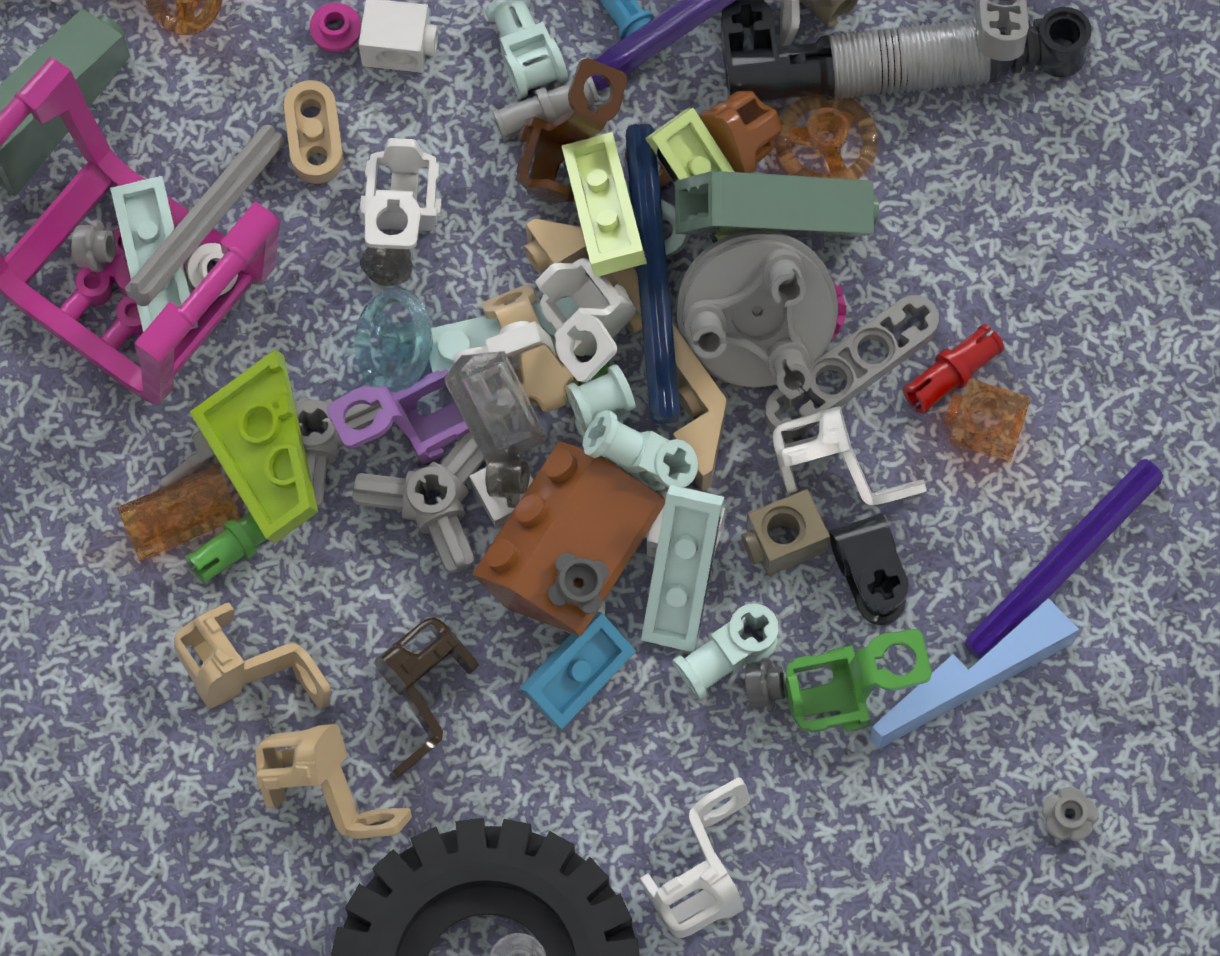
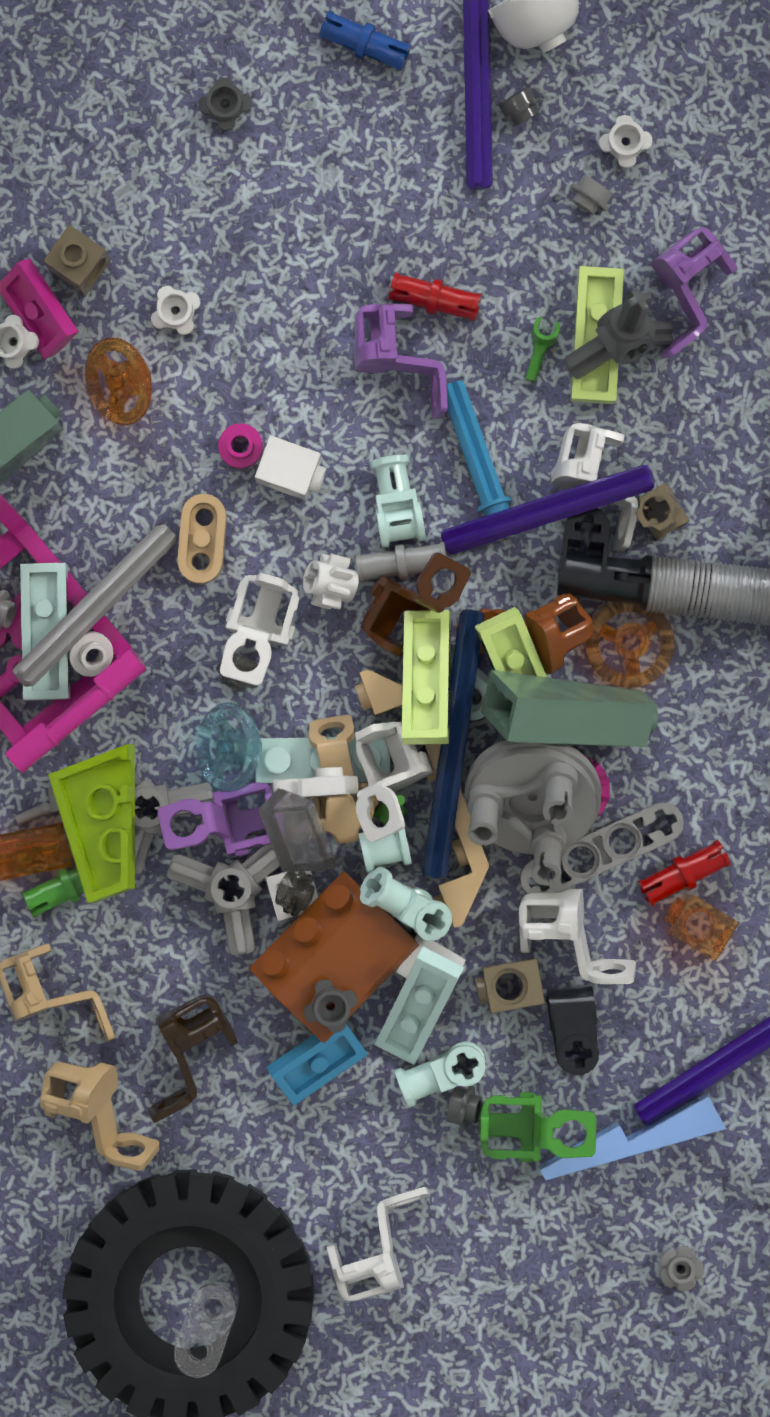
camera: 15 degrees right, 15 degrees up
(470, 141) = (330, 581): none -> white gear

